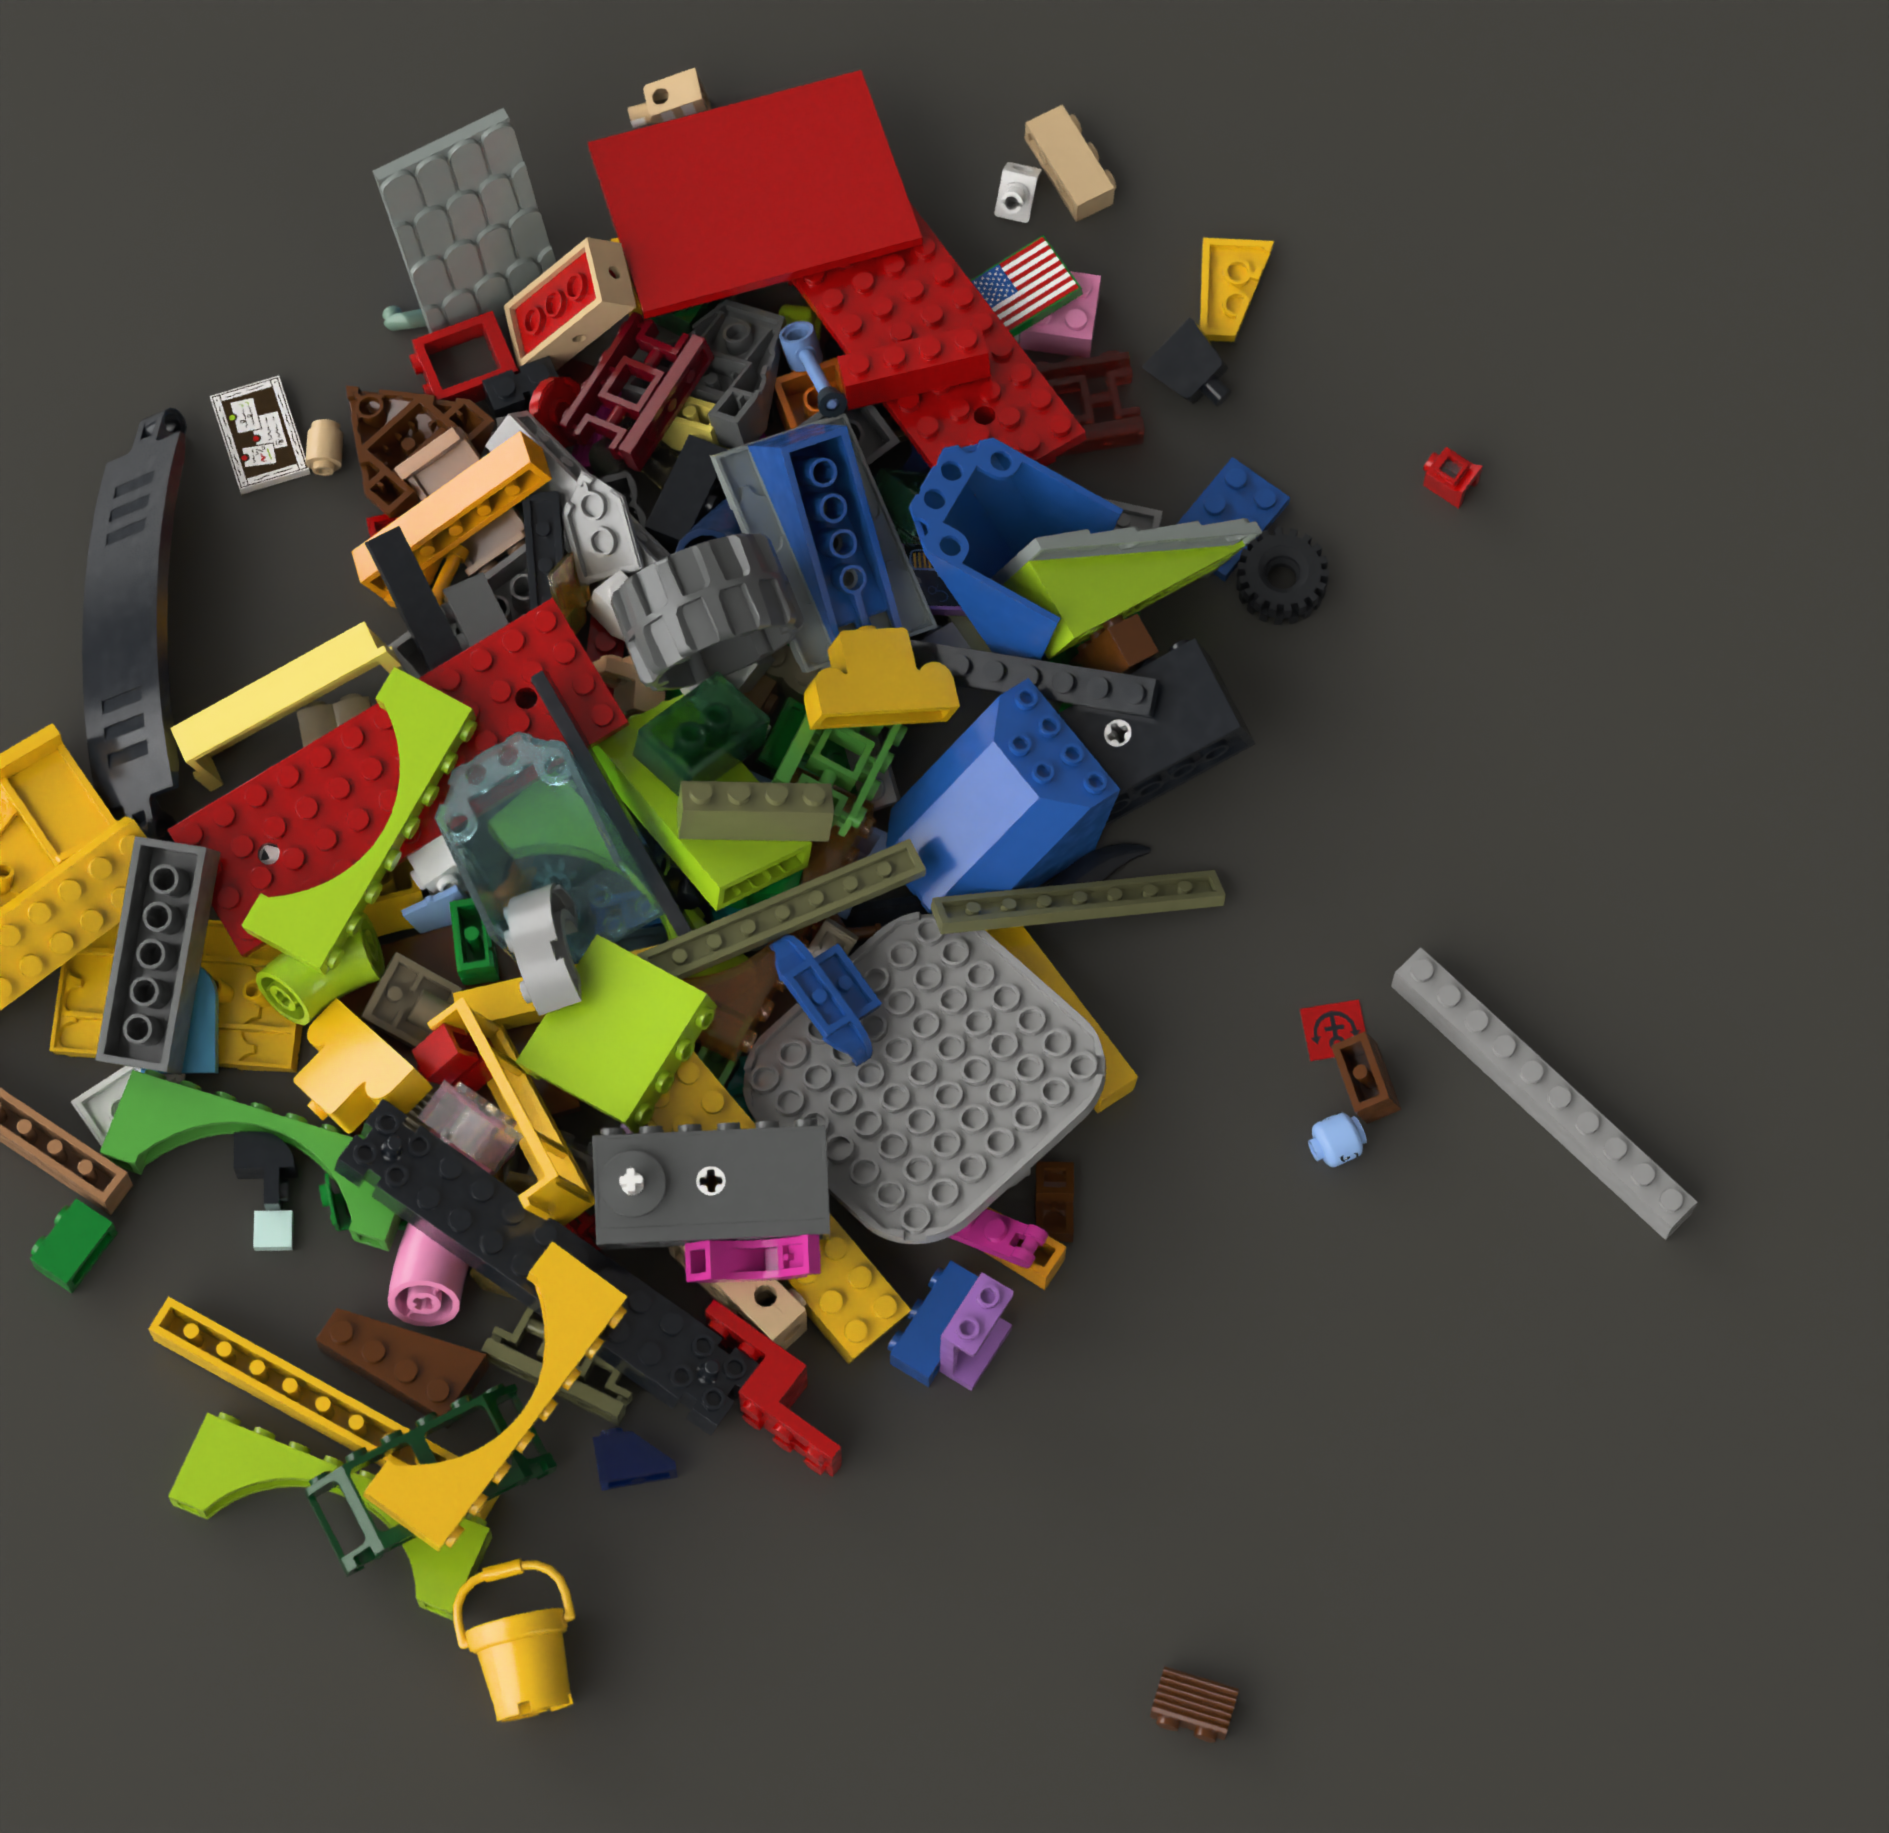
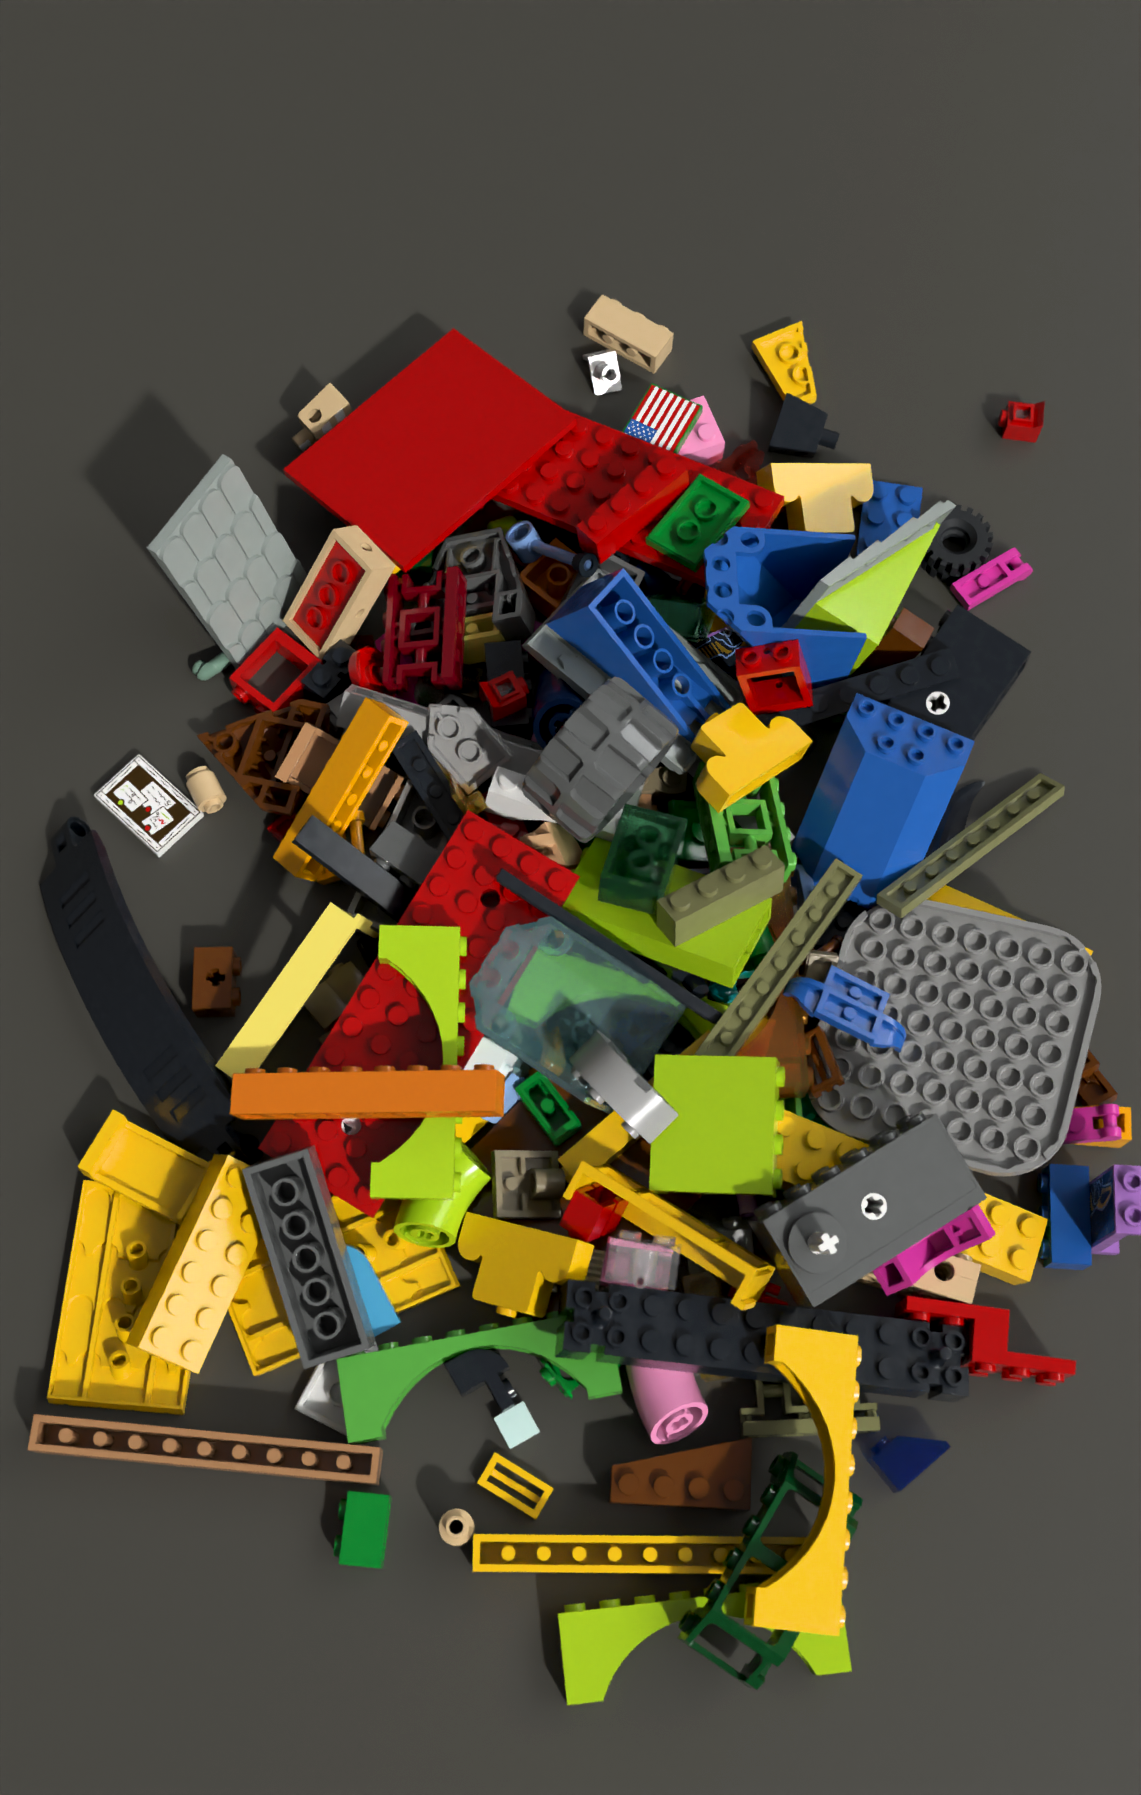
camera: 30 degrees left, 0 degrees up
(154, 1277) = (468, 1527): none -> tan brick
(225, 630) = (213, 964): none -> reddish brown brick
(254, 1312) = (489, 1470): none -> yellow tile
(293, 826) = (368, 1093): none -> orange brick
(521, 1652) = (926, 1670): yellow piece -> none
(671, 499) = (504, 694): none -> red window
(778, 1035) = (827, 1083): none -> dark orange tile
(963, 641) = (777, 693): none -> red window
(974, 411) = (697, 521): none -> green tile
(1154, 450) = (819, 494): none -> yellow brick
(1300, 635) = (990, 579): none -> dark pink plate

